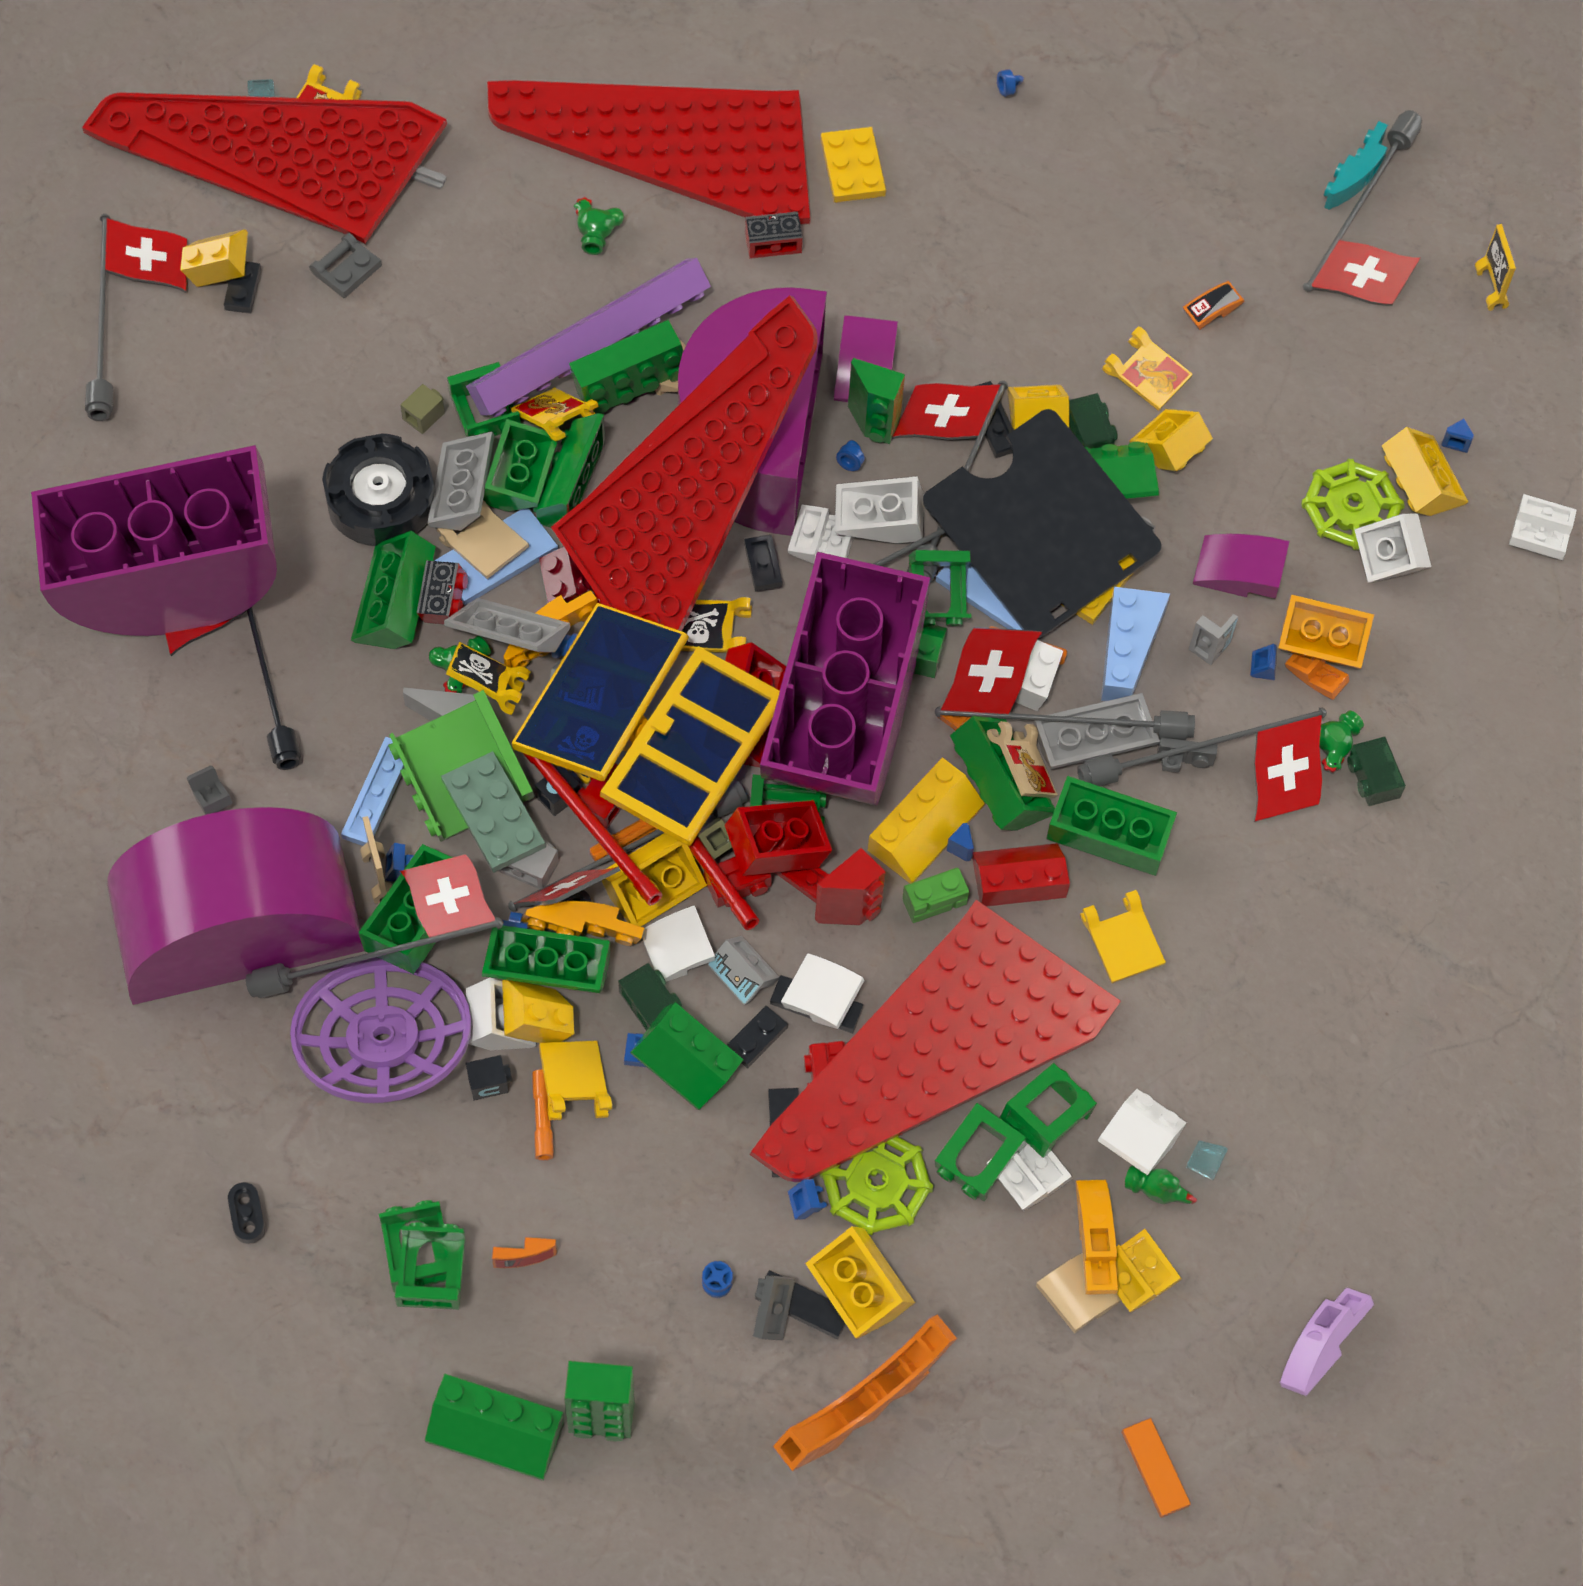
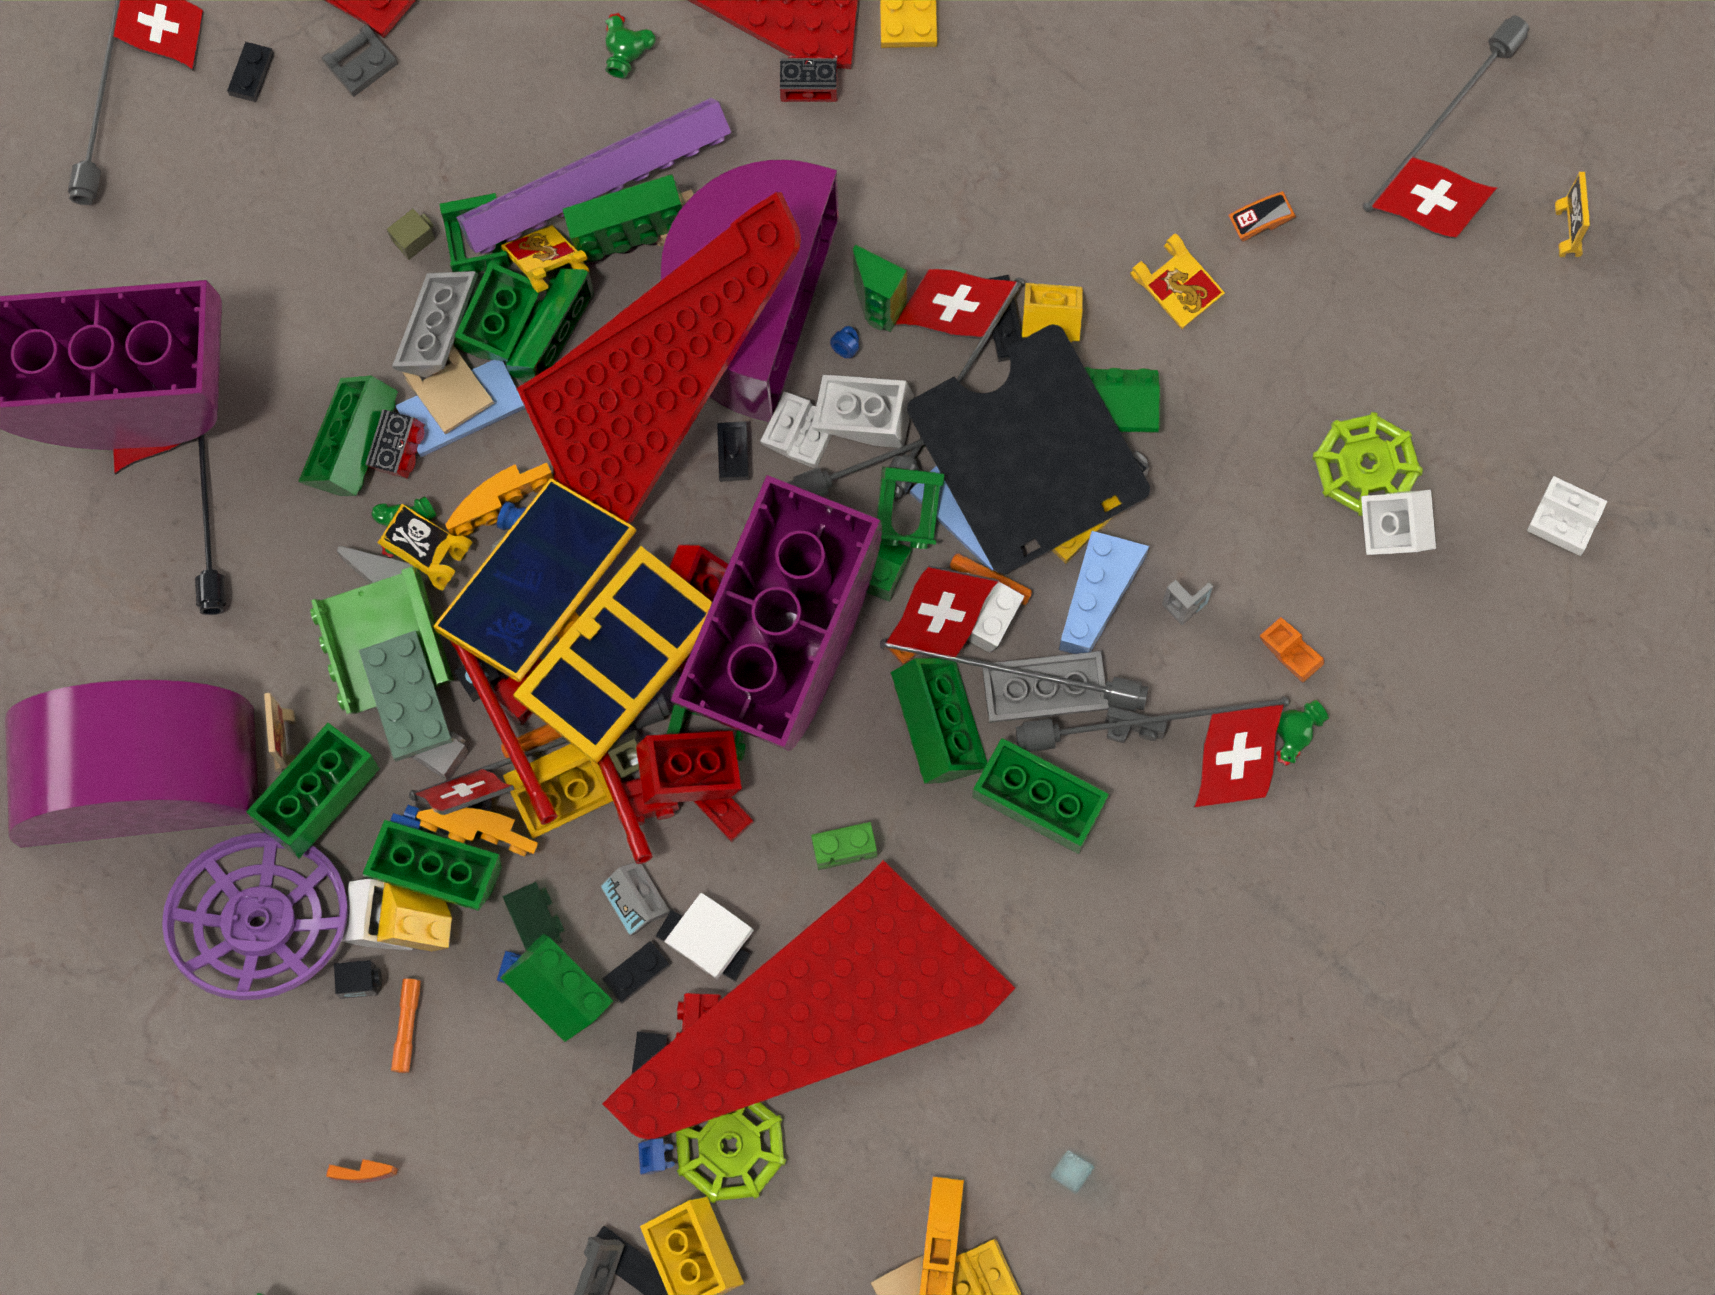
camera: 15 degrees right, 10 degrees up
(209, 790) = (128, 630): dark grey bracket -> none
(215, 258) = (225, 37): yellow slope -> none
(246, 1214) = (92, 1089): black plate -> none
(374, 795) = (291, 659): light blue plate -> none
(378, 488) = (349, 320): black piece -> none
(391, 1223) = (236, 1123): green panel -> none
(396, 861) = (303, 733): blue tile -> none
(430, 1297) = (247, 1150): green panel -> none
(446, 902) = (335, 801): flag -> none
(509, 625) = (455, 494): light grey slope -> none
(562, 576) = (522, 443): bracket -> none
(574, 1073) = (442, 989): yellow flag -> none
(677, 943) = (571, 861): white slope -> none
(712, 624) = (667, 514): flag -> none
(714, 1273) = (543, 1225): blue wheel -> none
(851, 892) = (753, 836): red slope -> none
(865, 340) = (881, 226): magenta slope -> none
(925, 821) = (849, 763): yellow slope -> none
(961, 843) = (881, 791): blue slope -> none
(980, 1184) = (837, 1166): green panel -> none
(1021, 874) = (937, 832): red slope -> none
(1024, 760) = (962, 712): tan flag -> none
(1033, 1178) = (887, 1158): white slope -> none
(1037, 1133) = (891, 1114): green panel -> none
(1090, 421) = (1104, 339): clear green brick -> none
(1124, 940) = (1032, 921): yellow flag -> none
(1142, 1131) = (1007, 1138): white slope -> none
(1158, 1186) = (1013, 1195): green animal -> none
(1174, 438) = (1188, 366): yellow slope -> none
(1241, 564) = (1234, 518): magenta slope -> none
(1264, 662) = (1238, 631): blue slope -> none
(1325, 631) = (1306, 610): light orange slope -> none
(1357, 170) = (1449, 78): teal slope -> none
(1376, 771) = (1331, 771): clear green brick -> none
(1423, 472) = (1450, 438): yellow slope -> none
(1458, 437) = (1495, 402): blue slope -> none

